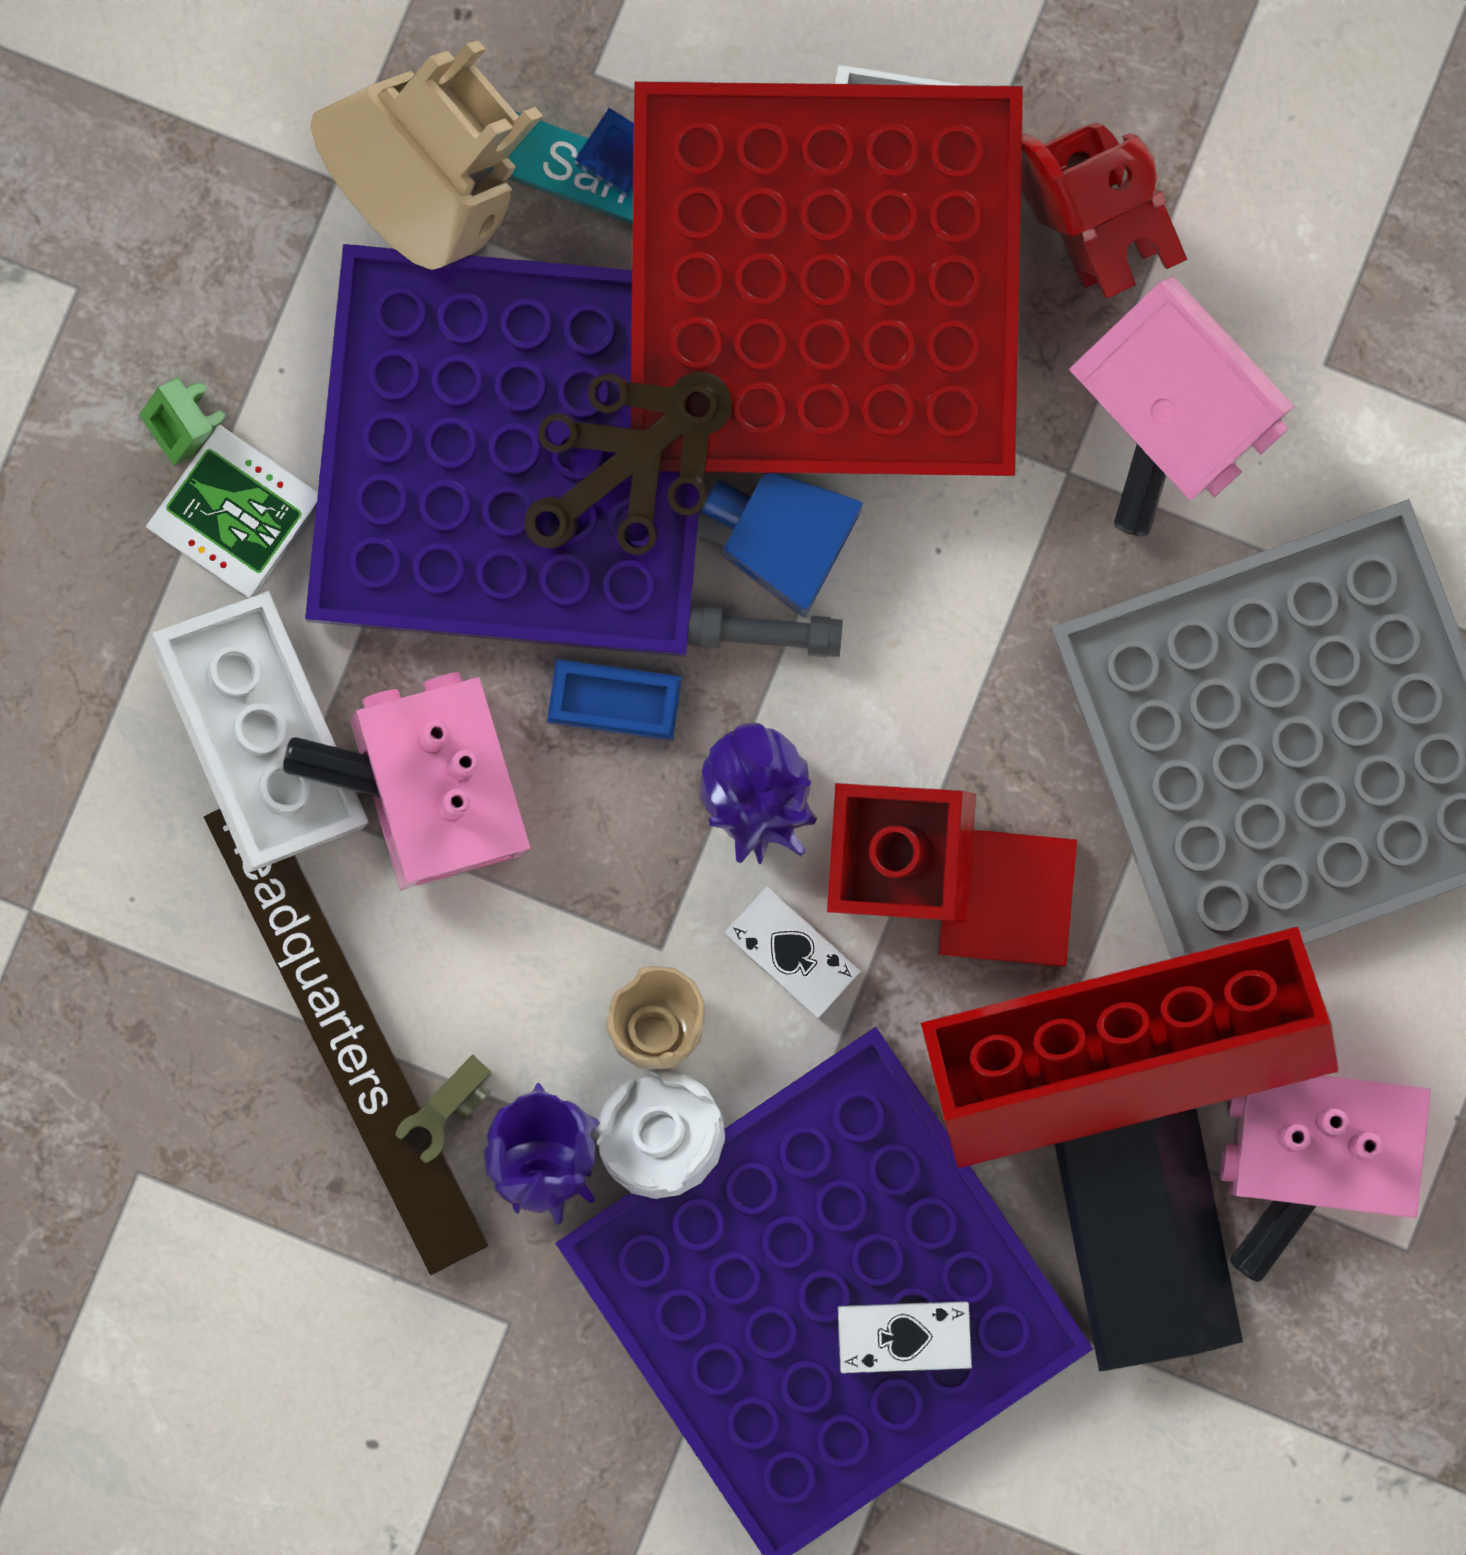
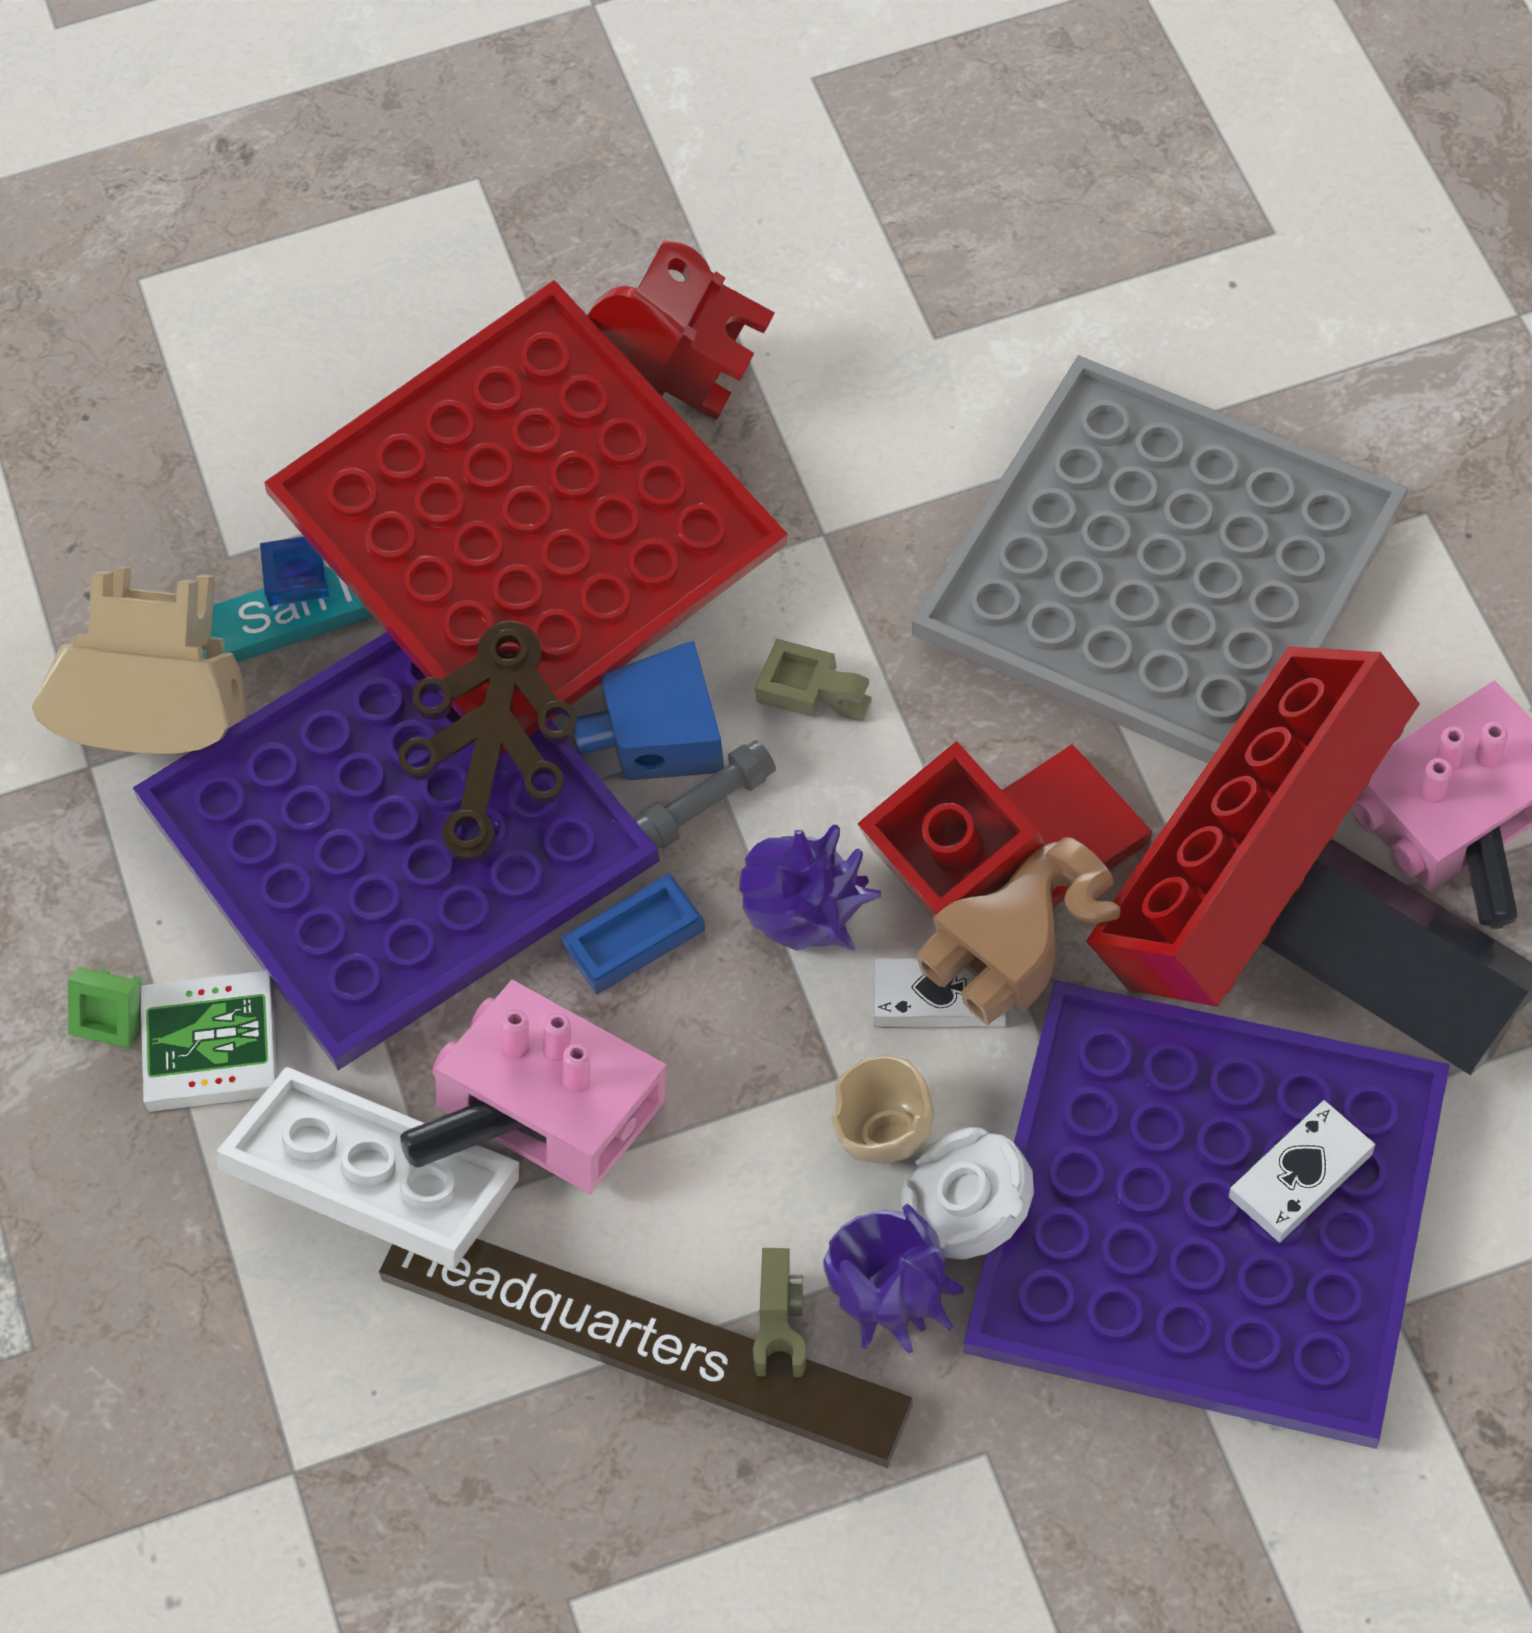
camera: 35 degrees left, 25 degrees down
(876, 967) = (1012, 933): none -> medium nougat hips
(926, 599) = (804, 677): none -> olive plate
(1182, 398) = (857, 402): bright pink piece -> none

